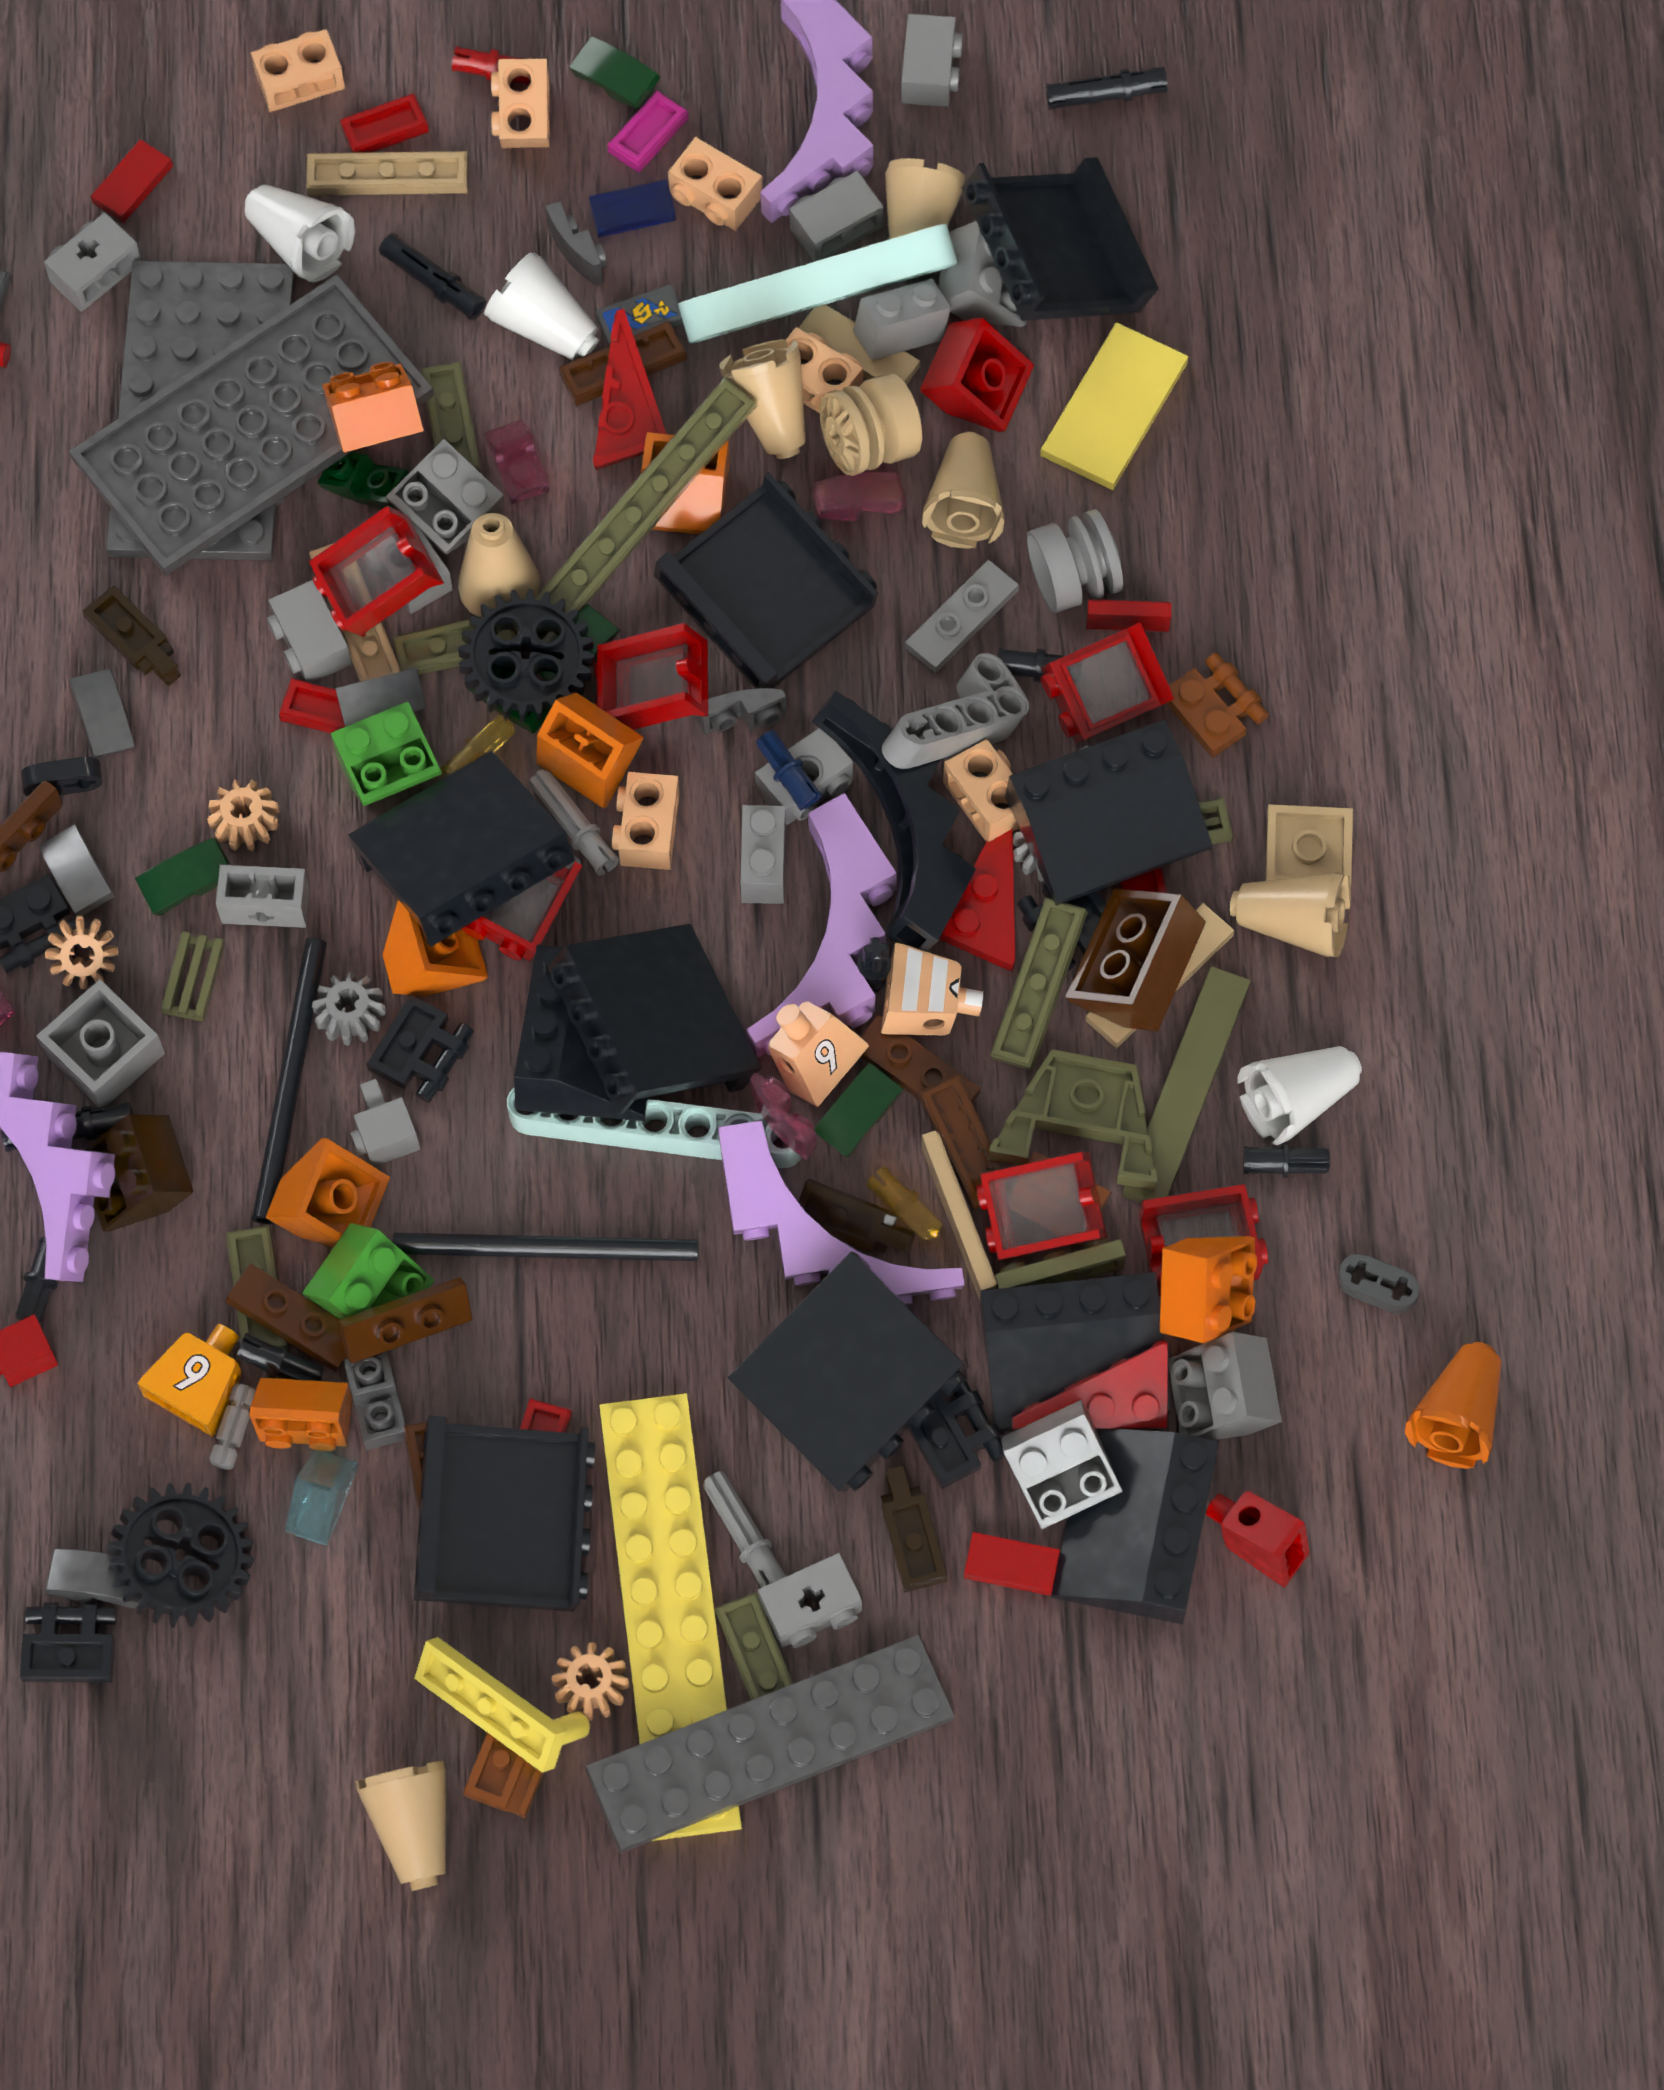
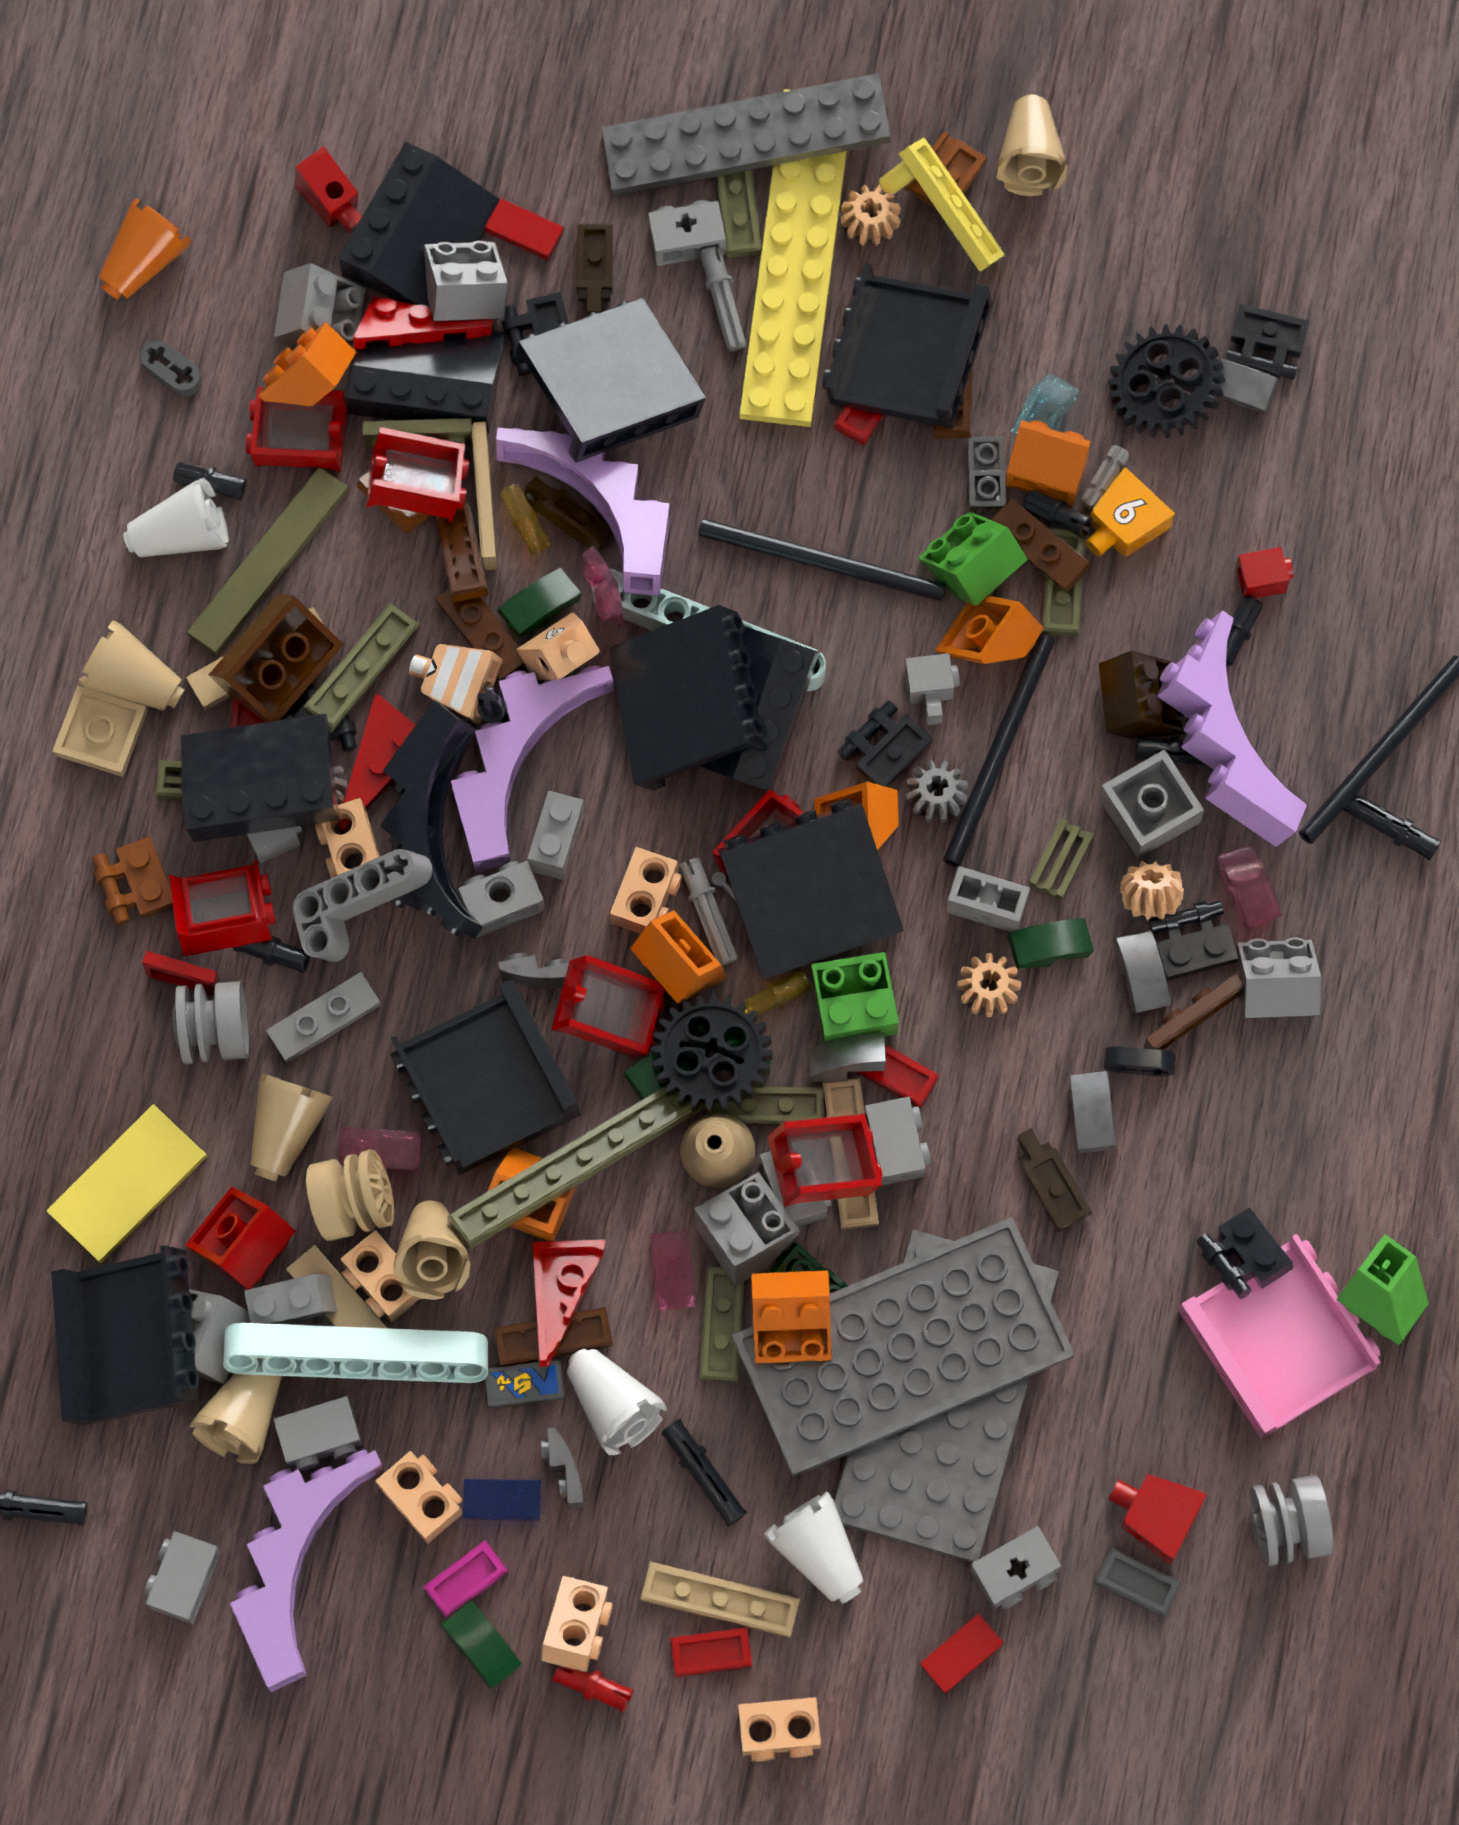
camera: 165 degrees left, 5 degrees up
(405, 1320) = (962, 512): reddish brown plate -> none
(788, 770) = (515, 883): dark blue axle -> none
(1084, 1100) = (354, 563): olive wing -> none

